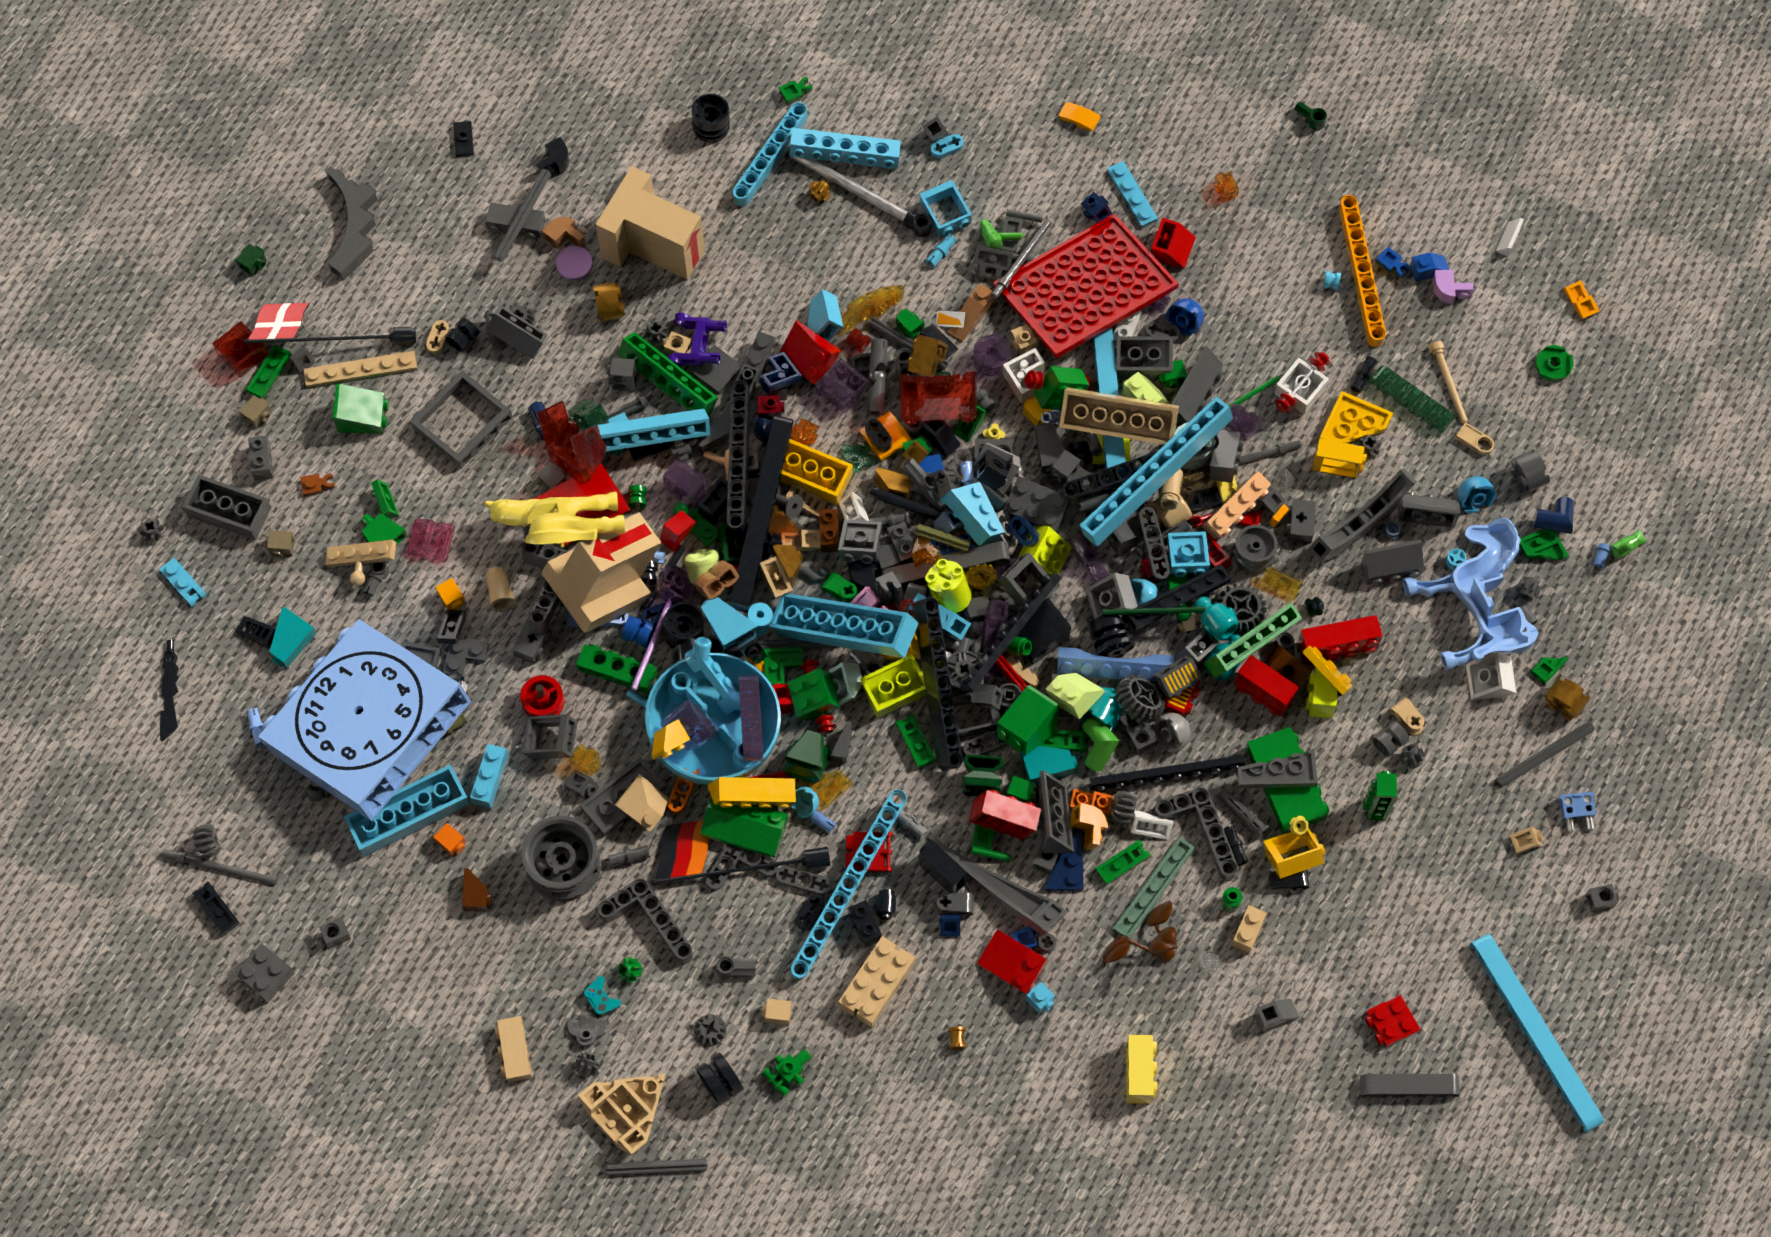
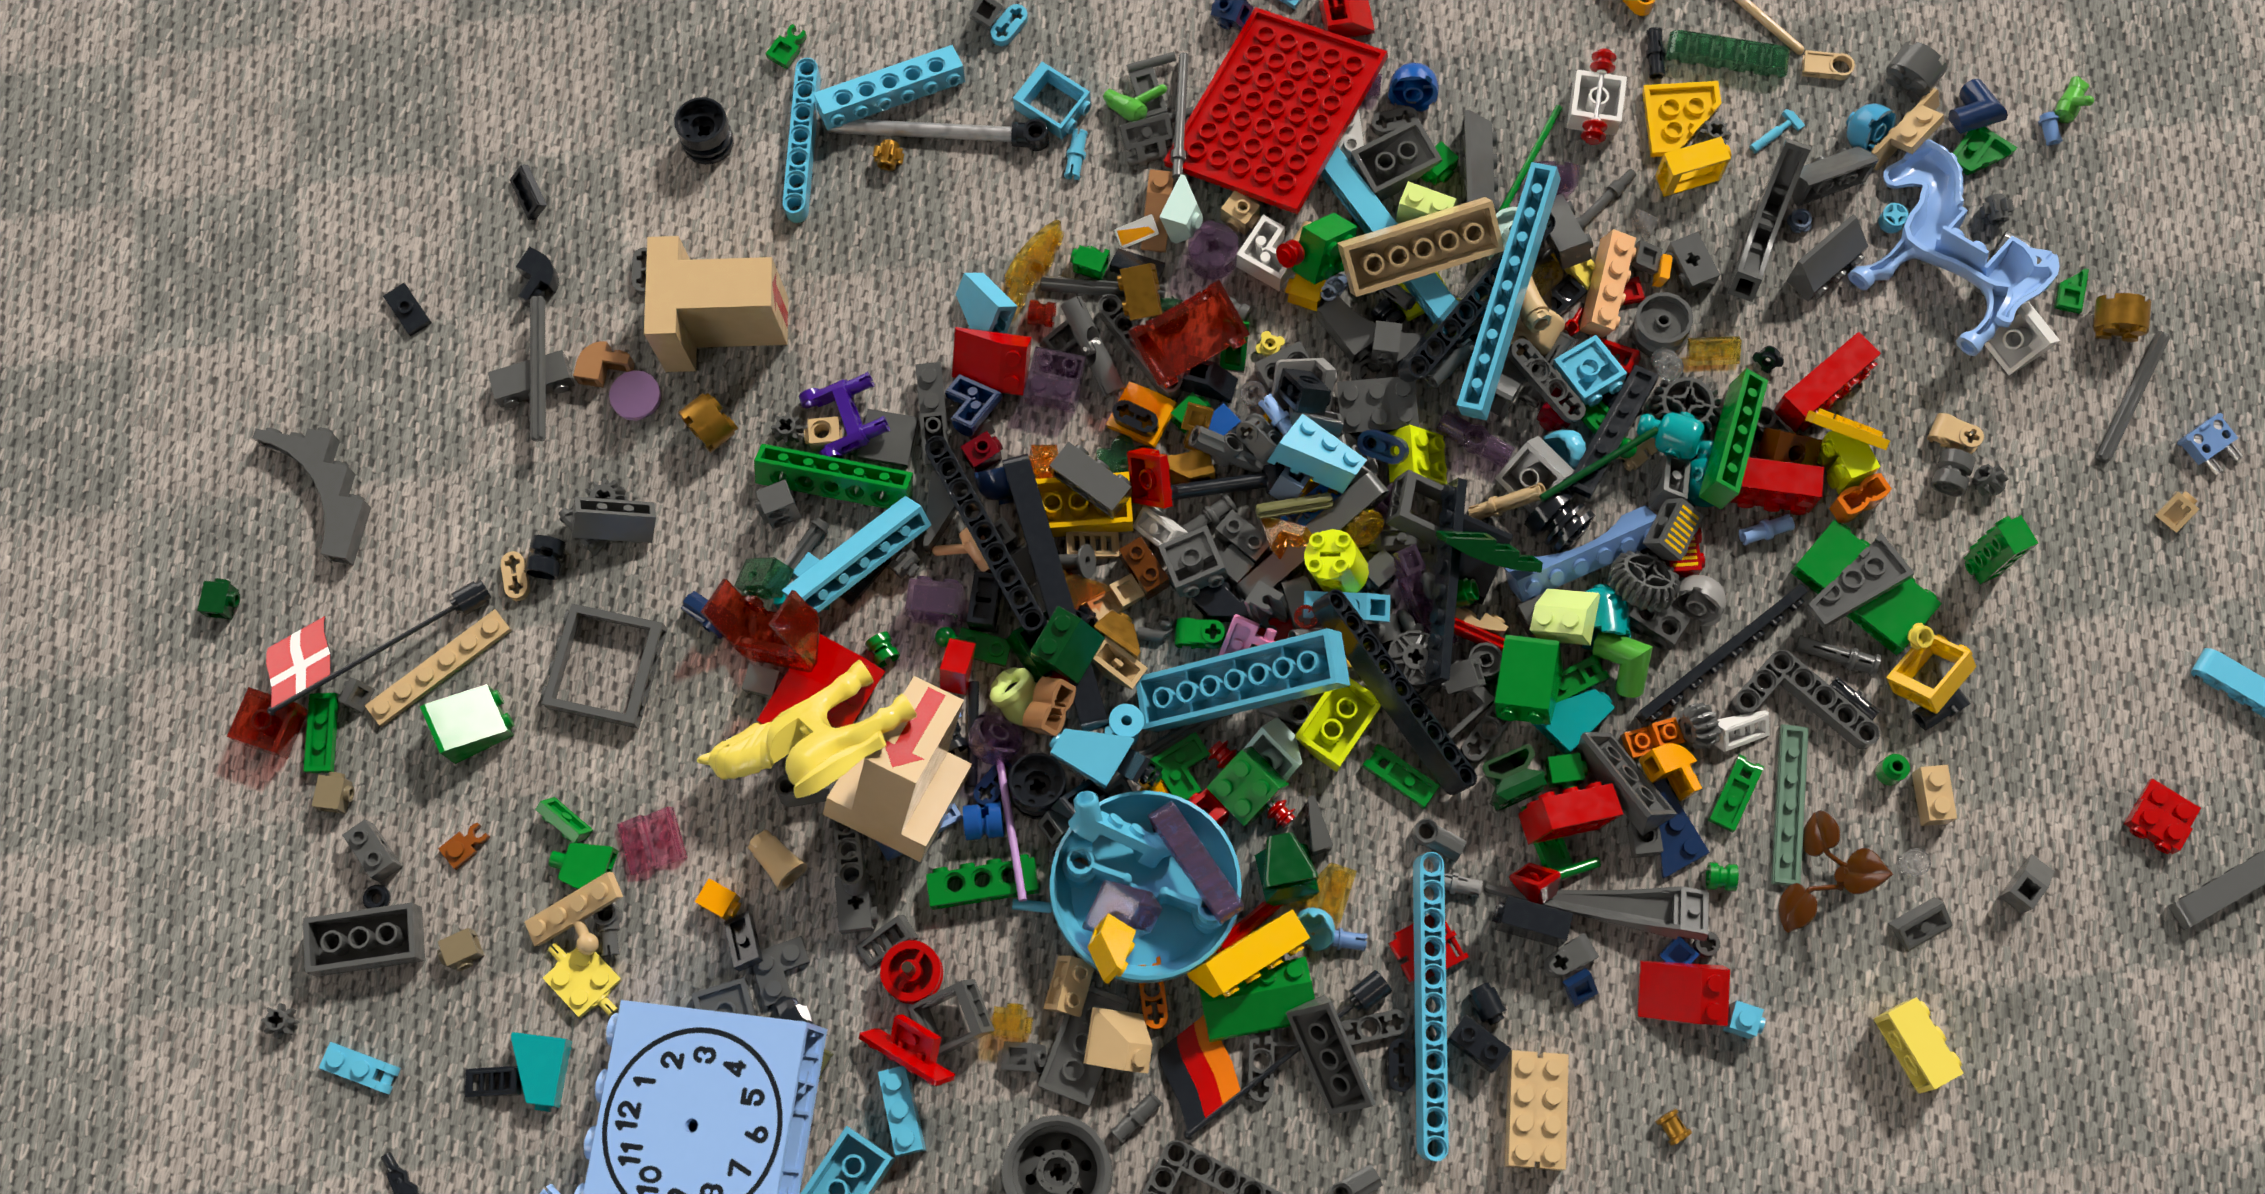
camera: 25 degrees left, 5 degrees up
(248, 482) = (371, 892): none -> black plate
(342, 600) = (582, 980): none -> light yellow plate
(516, 740) = (911, 1047): none -> red bracket
(553, 665) = (905, 927): none -> dark grey slope
(579, 102) = (528, 192): none -> black plate
(633, 757) = (1069, 986): none -> tan bracket
(747, 547) = (1067, 645): none -> dark green slope
(767, 880) = (1330, 1056): none -> dark grey slope
(825, 456) = (1091, 479): none -> dark grey brick
(863, 475) = (1149, 478): none -> red plate
(916, 791) = (1441, 840): none -> dark grey piece
(960, 849) = (1536, 882): none -> red slope
(984, 319) = (1181, 213): none -> light aqua slope
(1043, 622) = (1484, 548): none -> dark green slope
(1077, 606) = (1497, 505): none -> tan pin
(1080, 906) = (1722, 876): none -> green wheel
(1193, 1004) = (1921, 923): none -> dark grey slope
(1241, 569) = (1662, 360): none -> clear wheel
(1245, 712) = (1766, 529): none -> light blue pin
(1312, 722) = (1860, 498): none -> orange brick
(1414, 465) = (1792, 119): none -> medium azure piece
(1502, 508) = (1912, 130): none -> tan bracket

